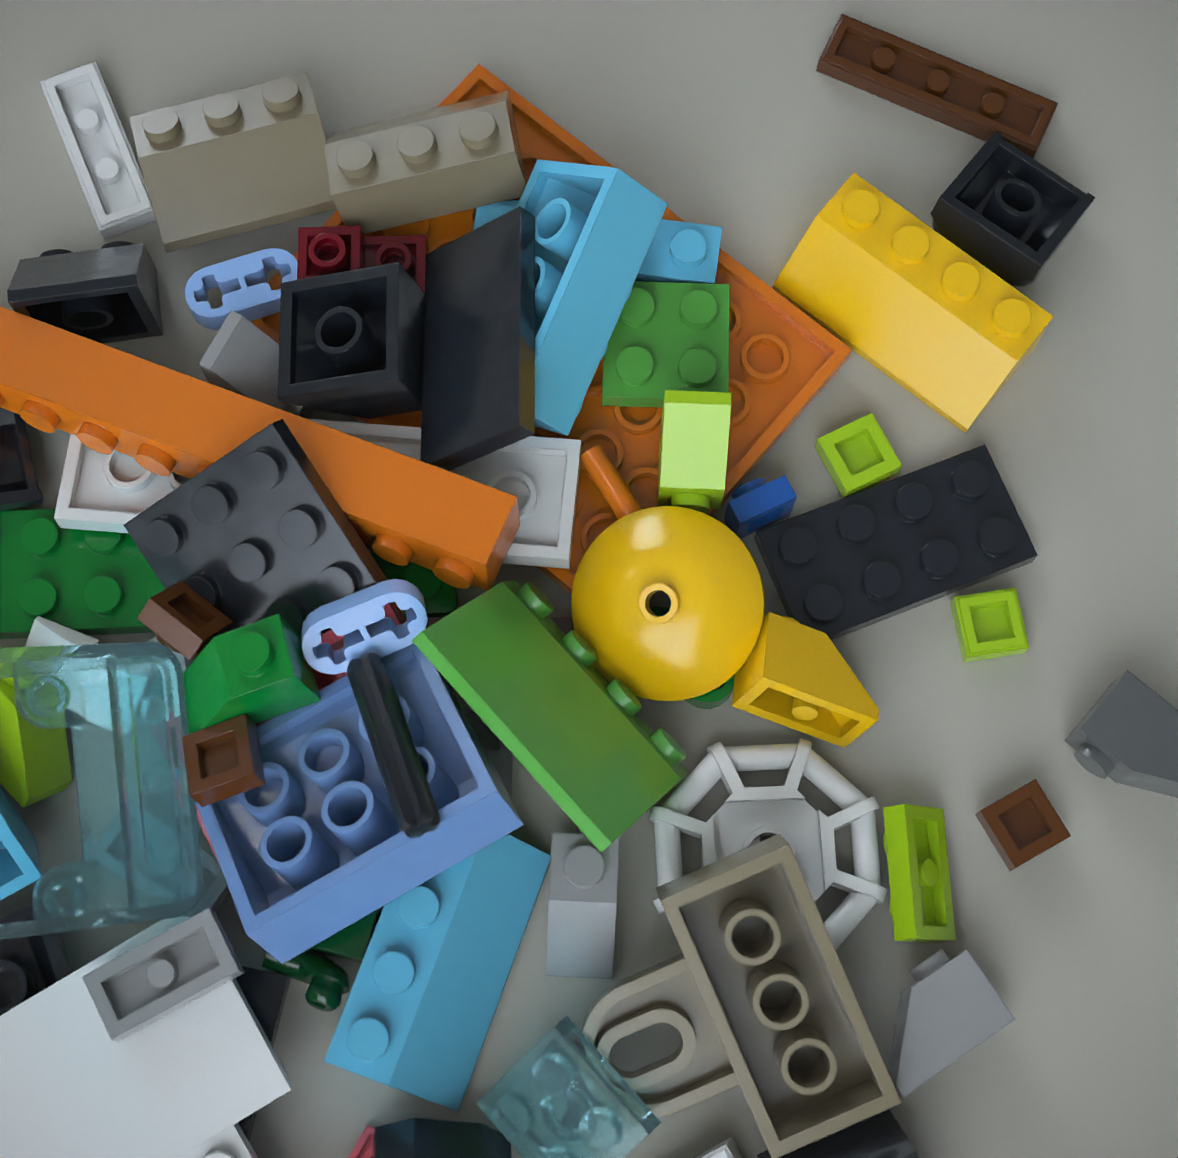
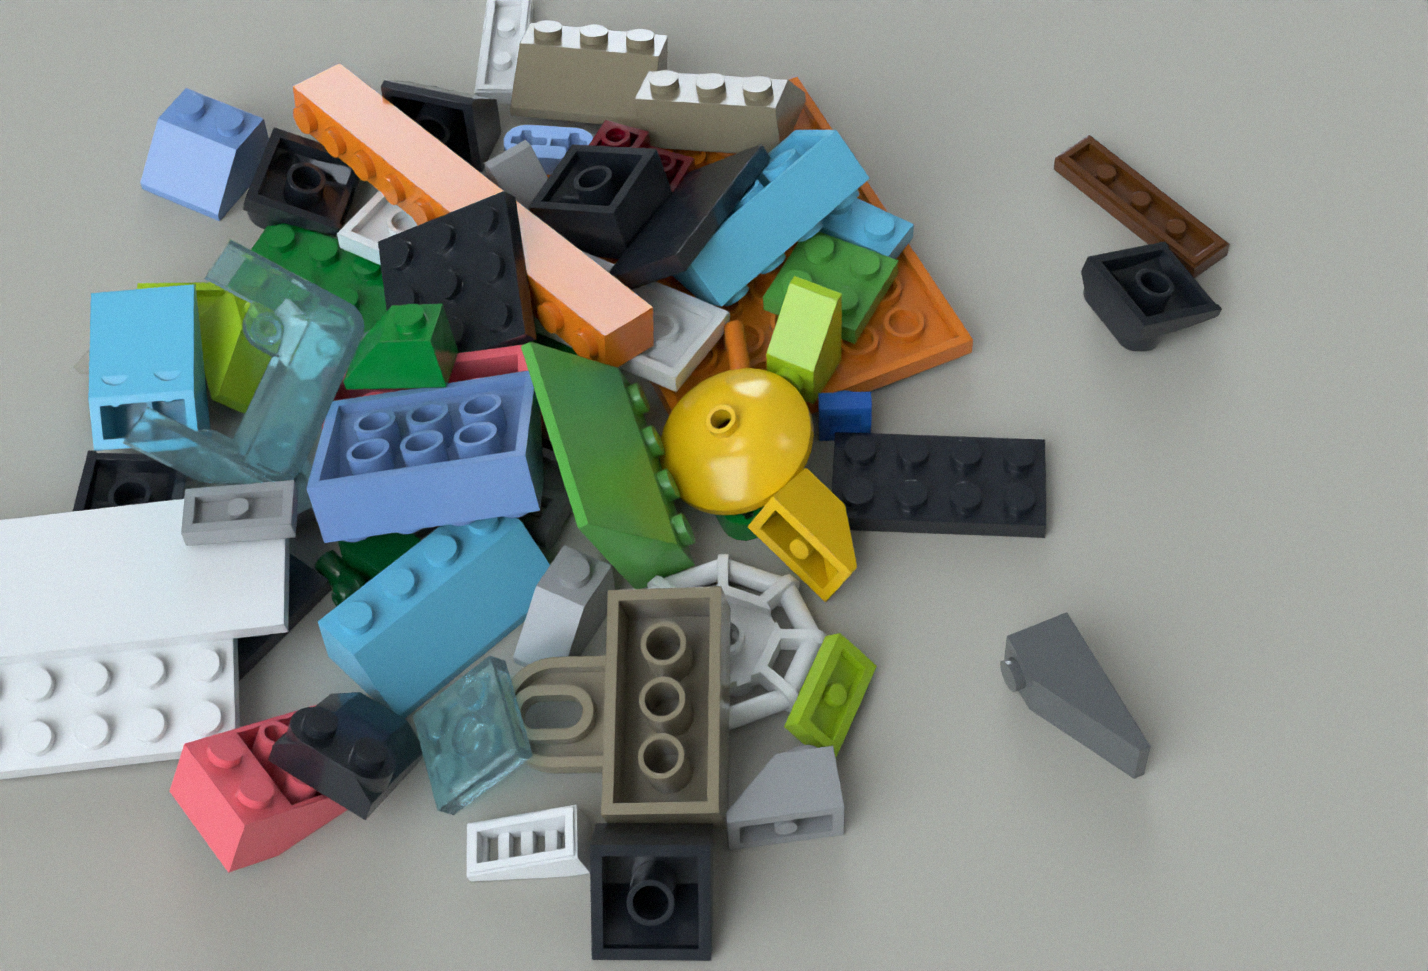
camera: 30 degrees right, 20 degrees down
(183, 620) = (375, 297): reddish brown plate -> none
(223, 760) = (356, 392): reddish brown plate -> none
(364, 624) = (498, 333): light blue beam -> none
(393, 746) = (472, 411): black axle -> none
(858, 455) = (941, 410): lime plate -> none
(911, 302) = (1039, 329): yellow slope -> none
(989, 625) = (984, 562): lime tile -> none
(1022, 825) = (932, 698): reddish brown plate -> none

